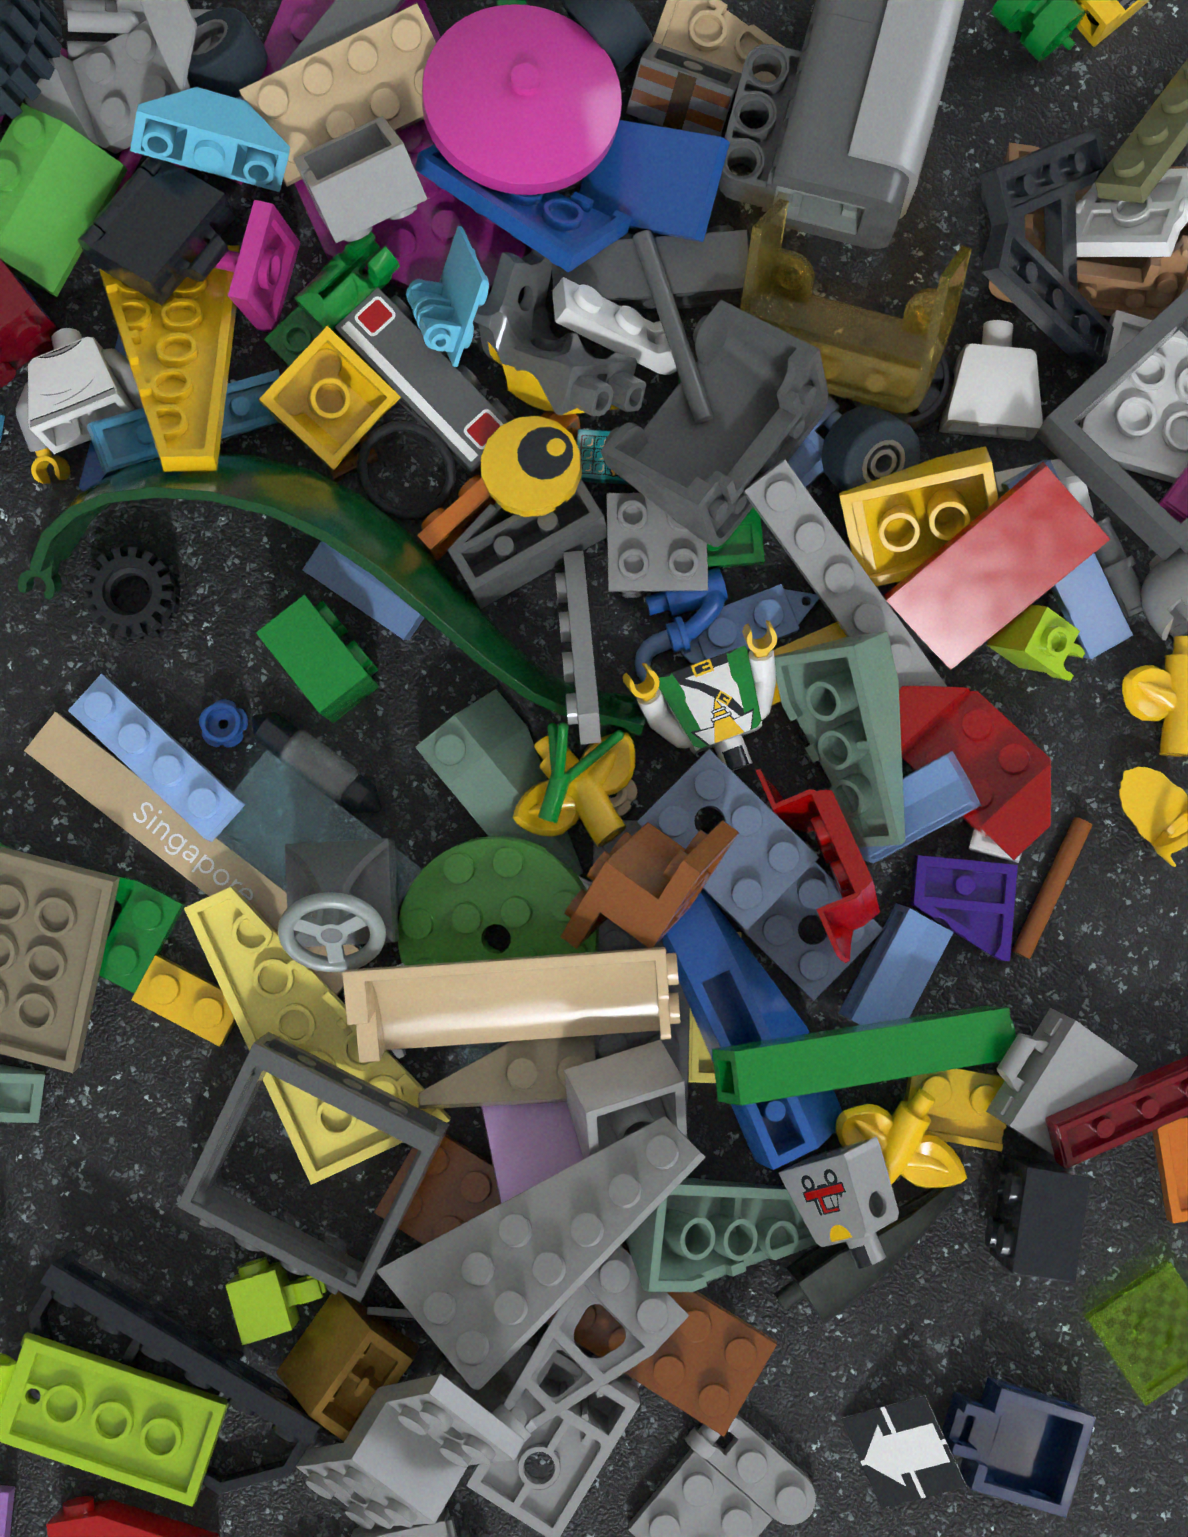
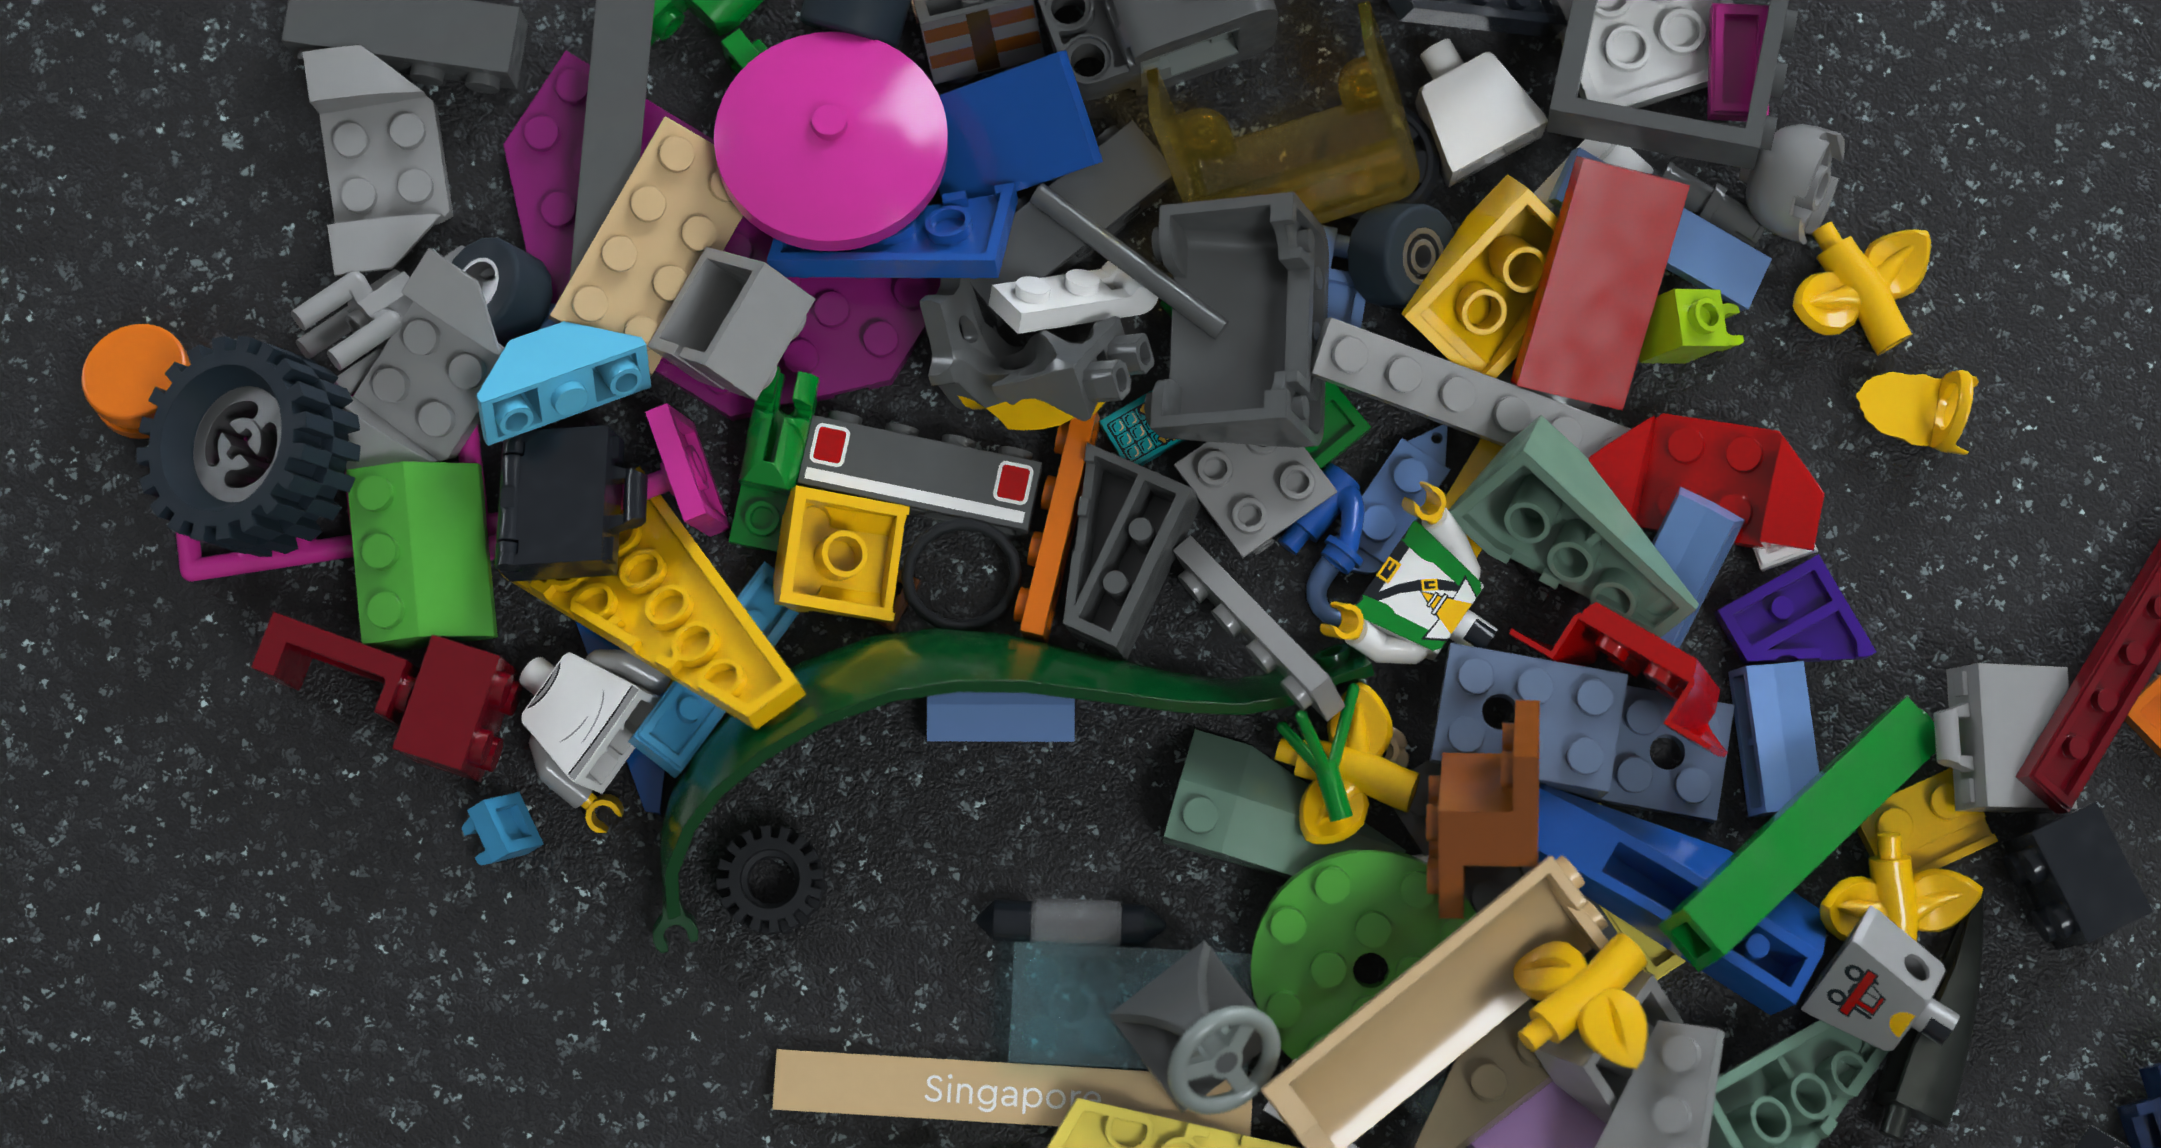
camera: 30 degrees left, 5 degrees down
(156, 758) = (910, 1024): light blue plate -> none
(219, 711) = (954, 963): blue plate -> none
(317, 659) = (1009, 812): green piece -> none
(448, 307) = (898, 378): medium azure hinge -> none
(531, 466) = (1088, 487): yellow tile -> none
(623, 1065) = (1585, 998): none -> yellow plant
(1052, 888) = (1866, 554): dark orange bar -> none

